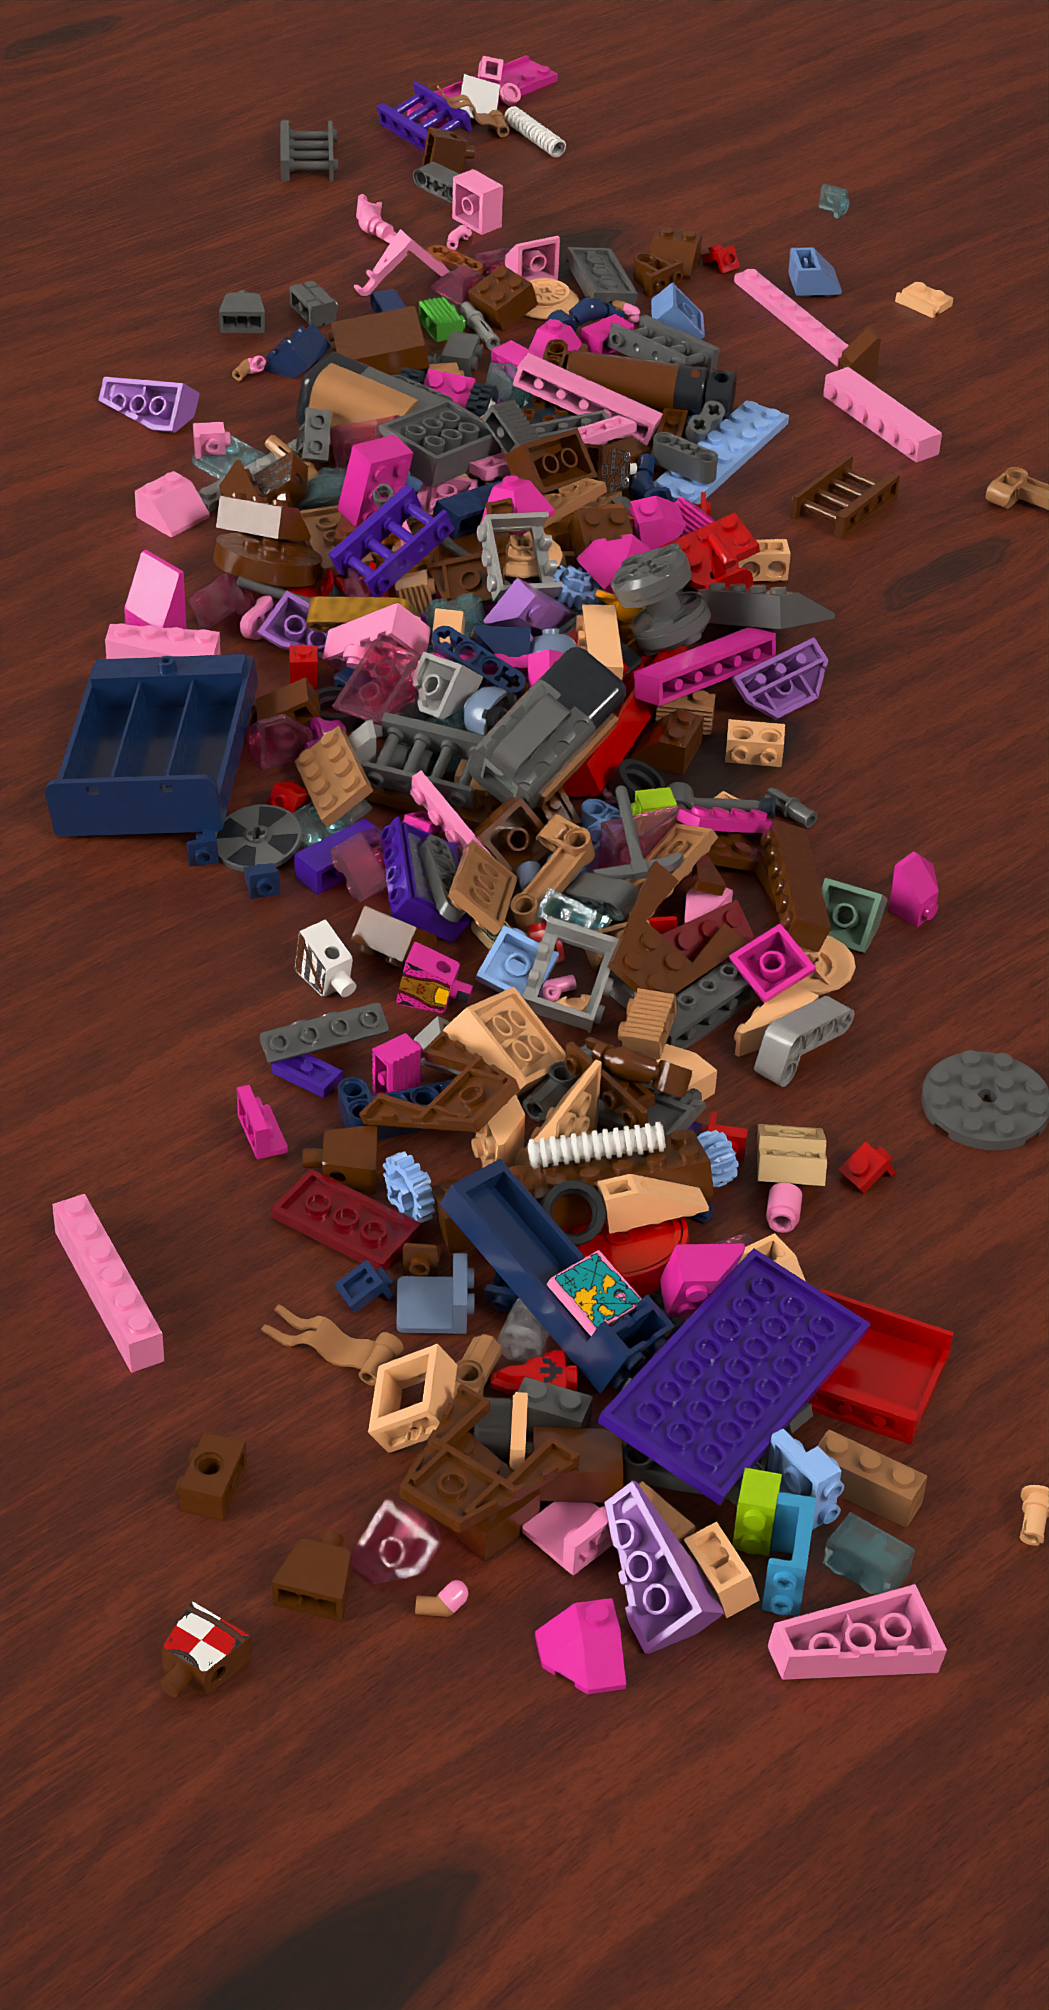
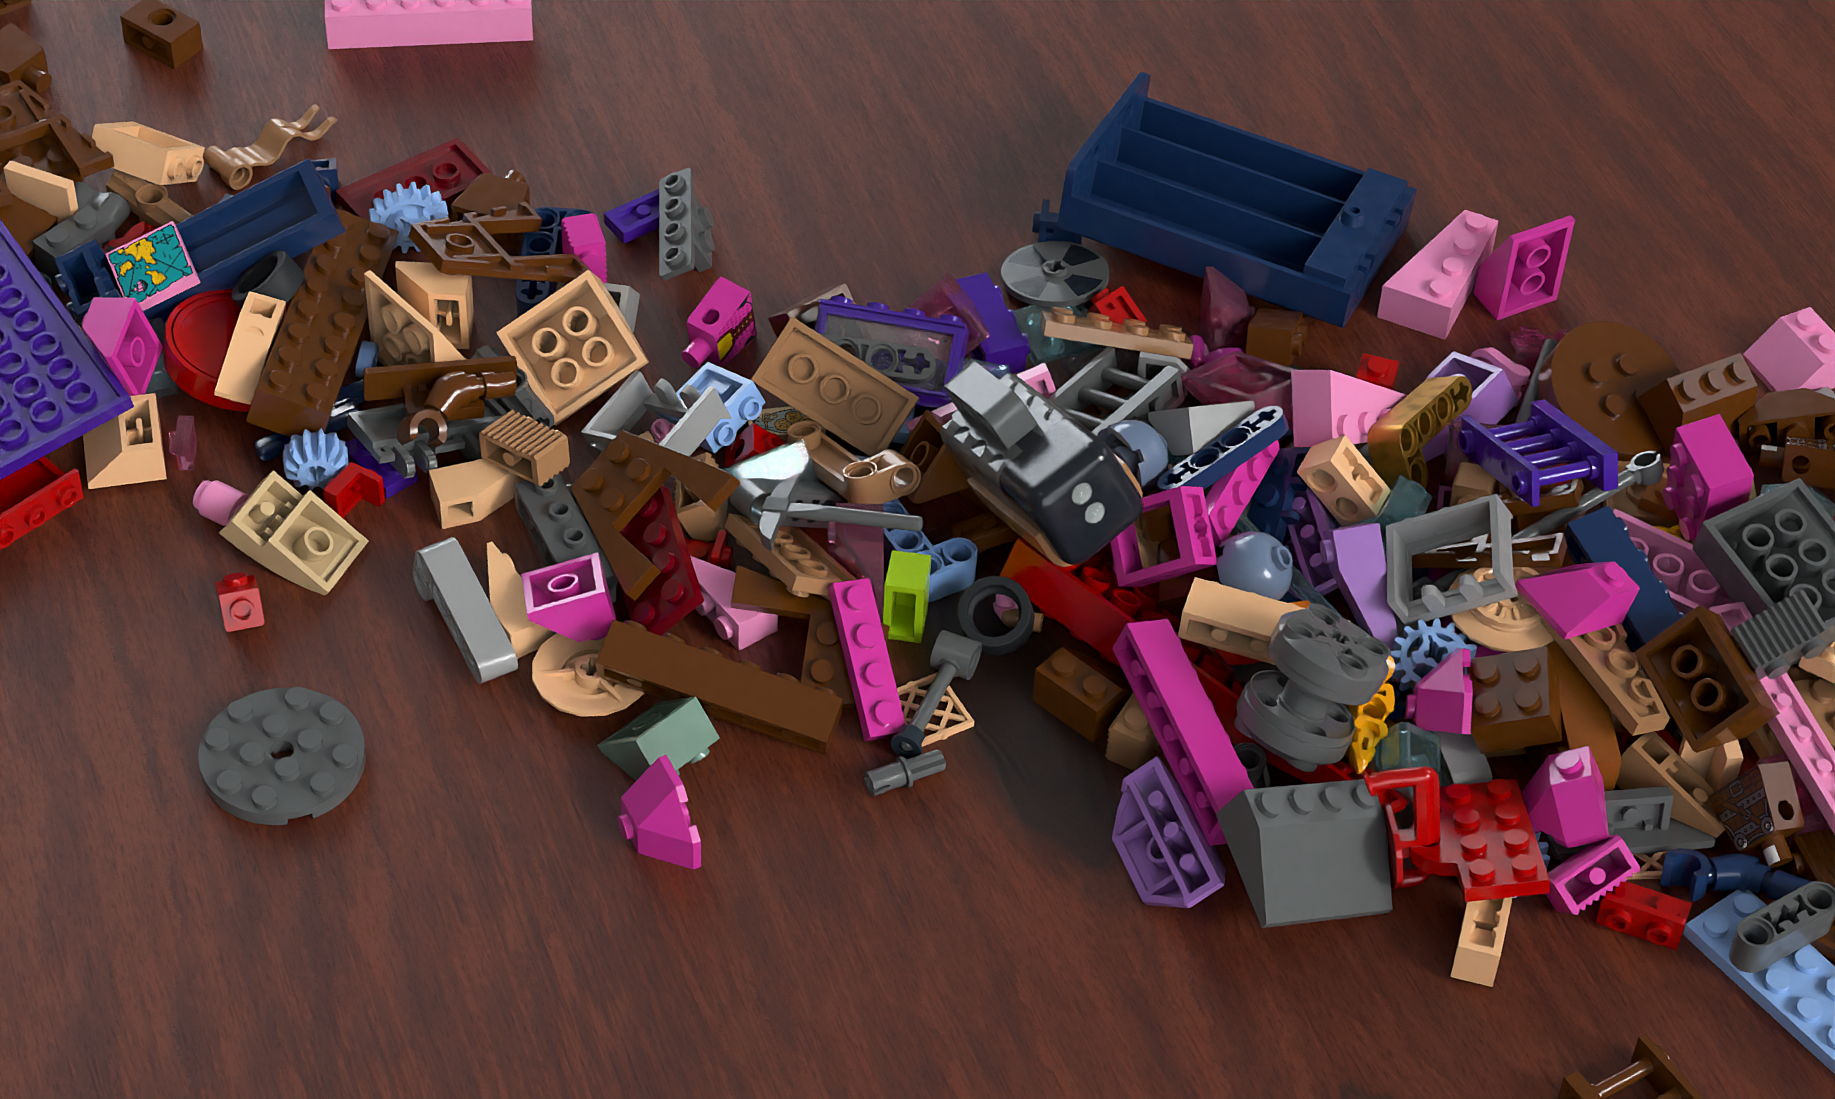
camera: 110 degrees right, 5 degrees up
(259, 1125) = (577, 154): dark pink bracket -> none
(262, 880) = (978, 260): dark blue bracket -> none
(324, 960) = (793, 255): white torso -> none
(502, 640) = (1293, 513): dark blue slope -> none
(596, 1145) = (330, 315): white piece -> none
(755, 743) = (1048, 776): light nougat brick -> none

